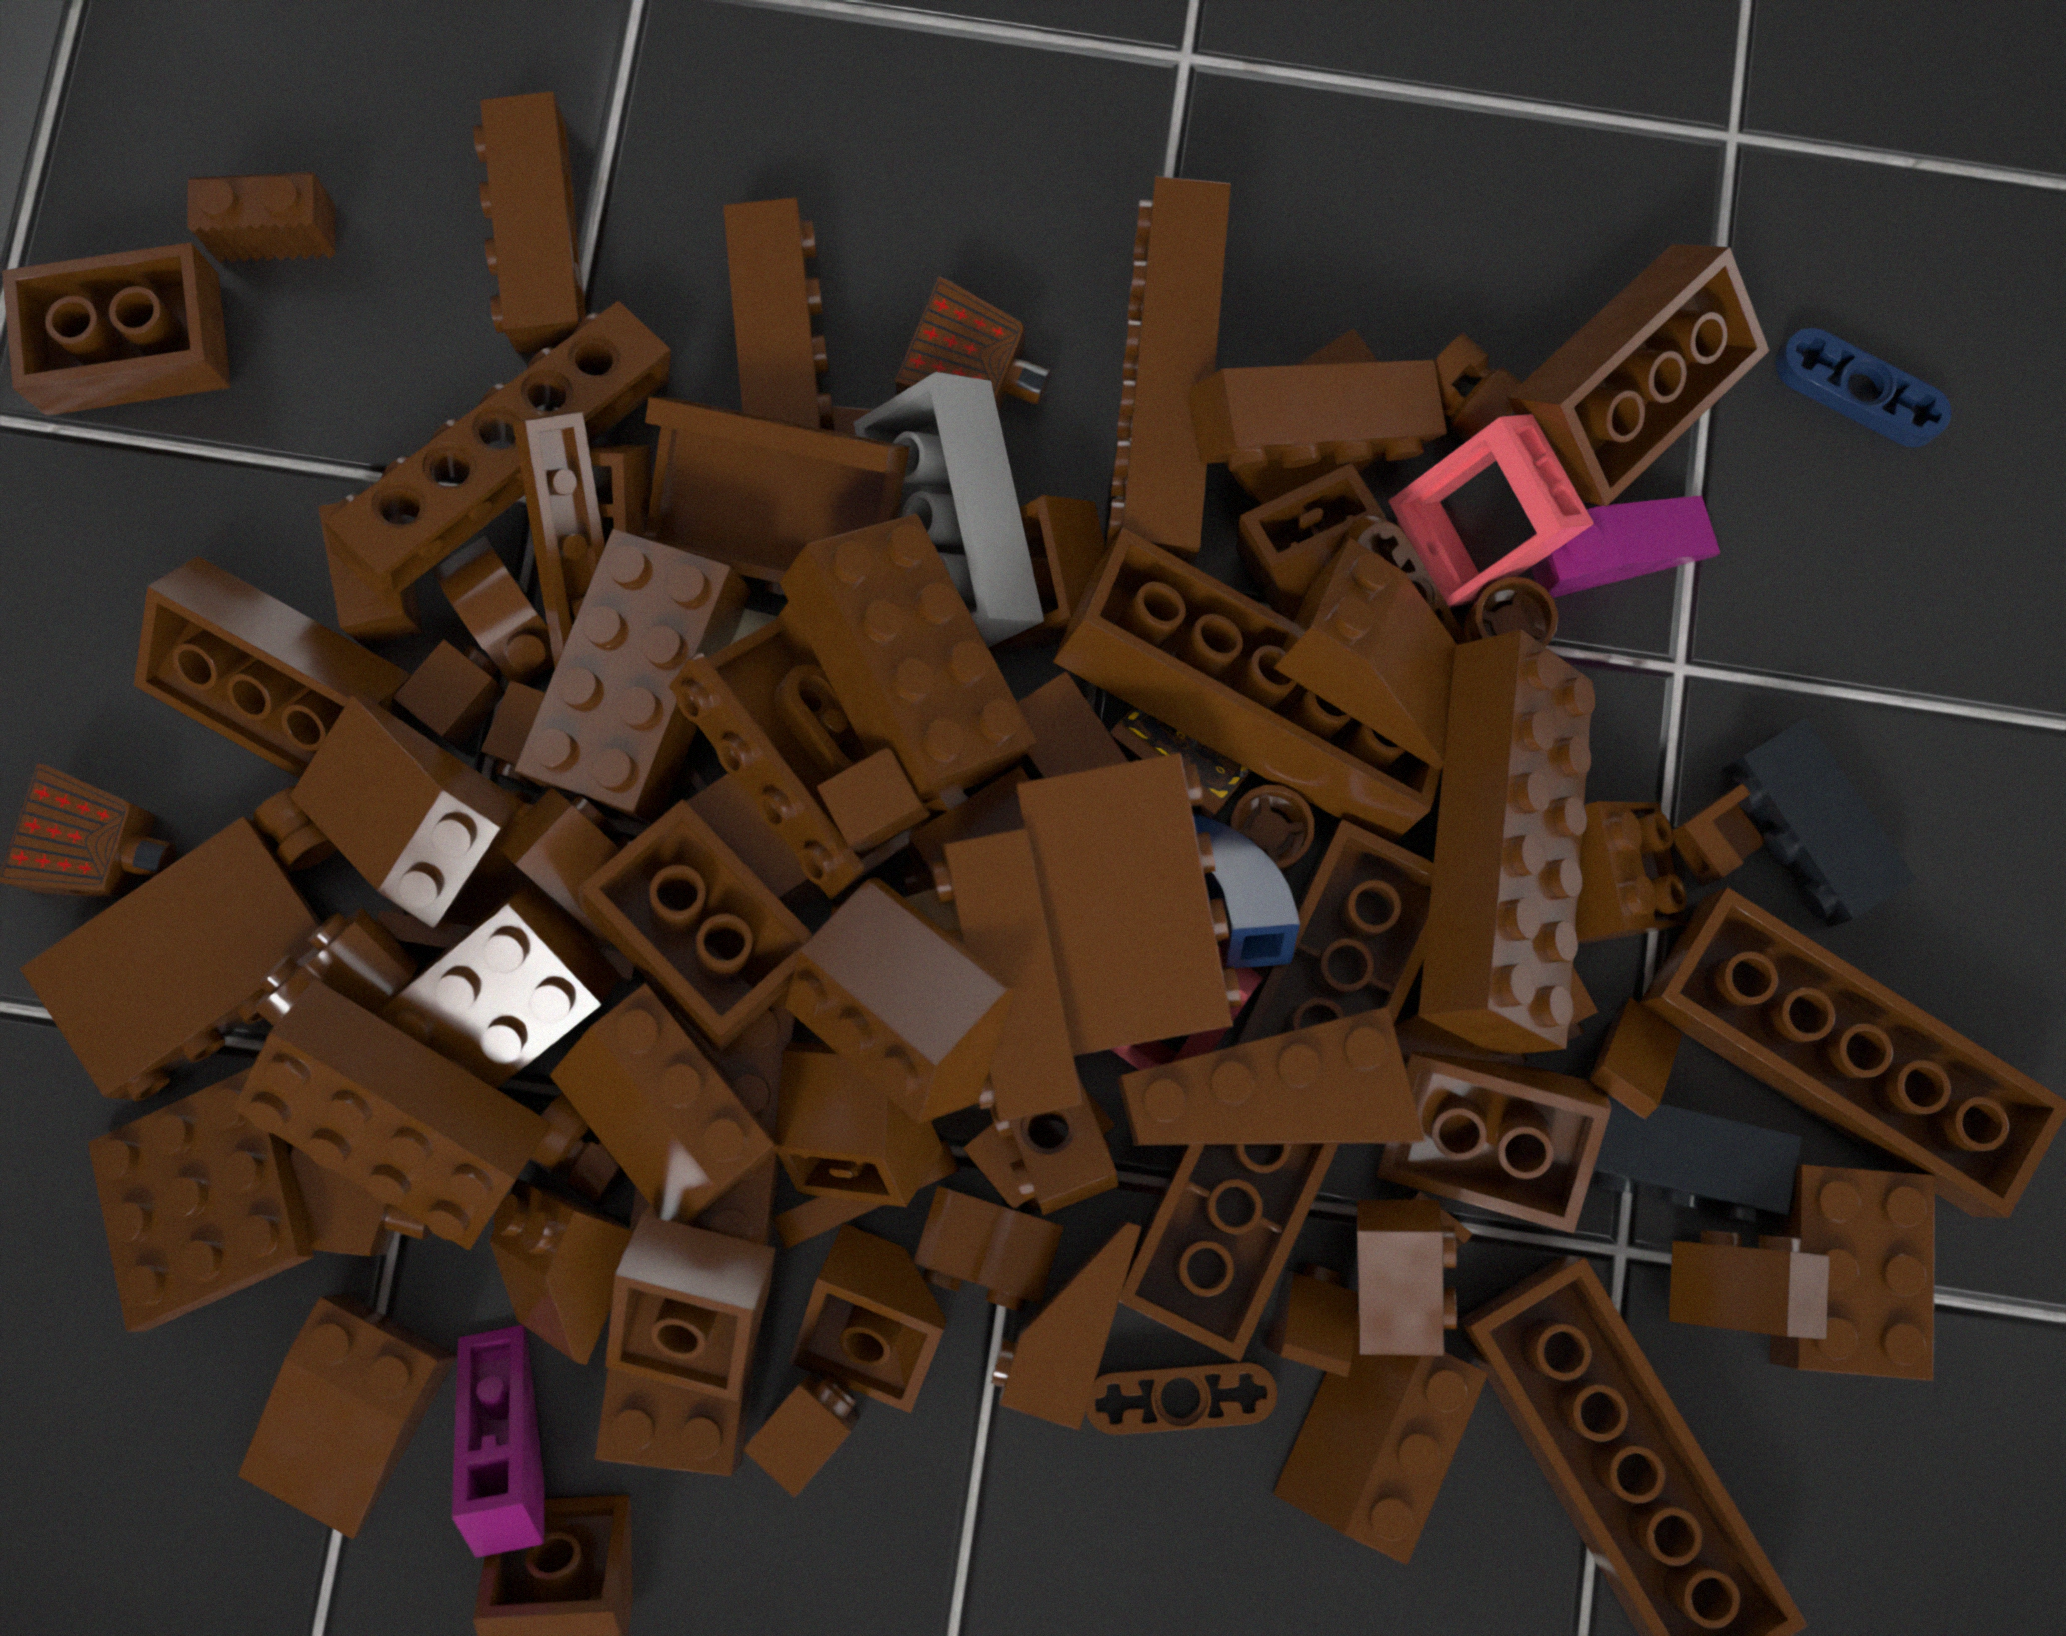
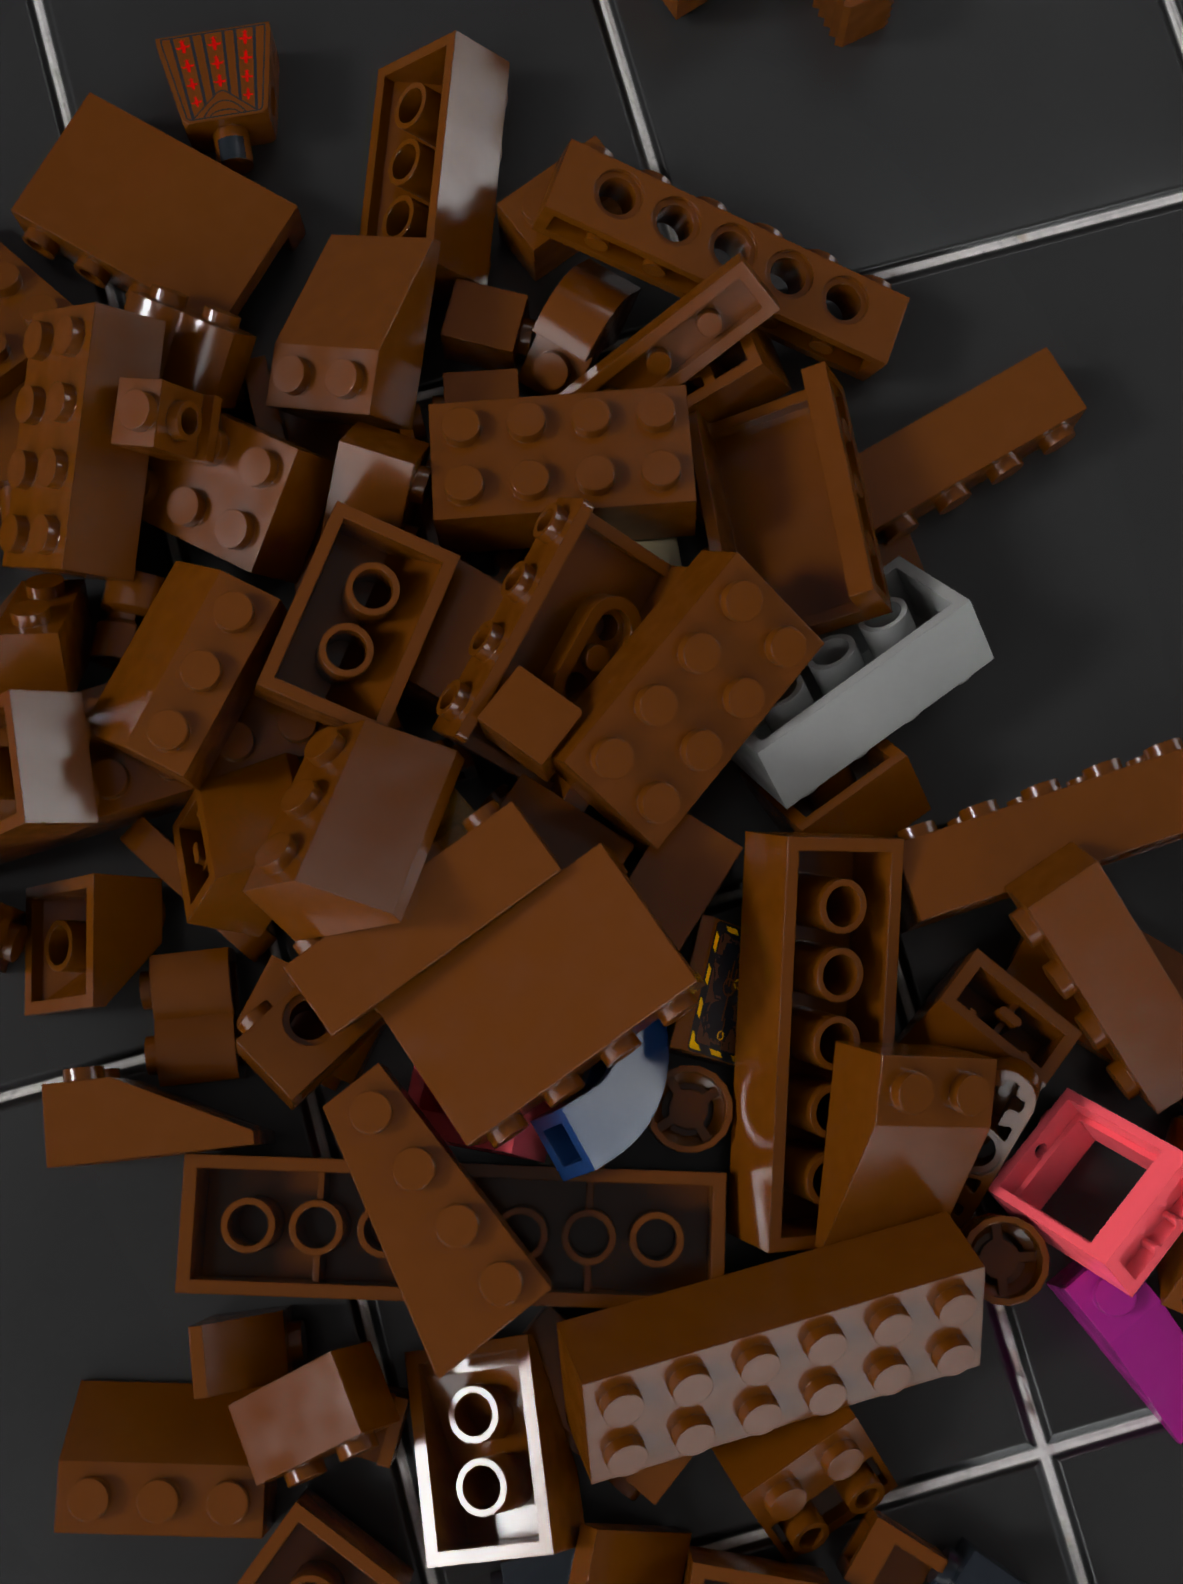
camera: 70 degrees right, 0 degrees up
(298, 837) = (296, 263): reddish brown wheel -> none
(417, 1017) = (166, 420): none -> reddish brown brick
(532, 220) = (953, 192): reddish brown brick -> none
(974, 341) = (1027, 629): reddish brown torso -> none
(1227, 1377) = (105, 1248): reddish brown beam -> none

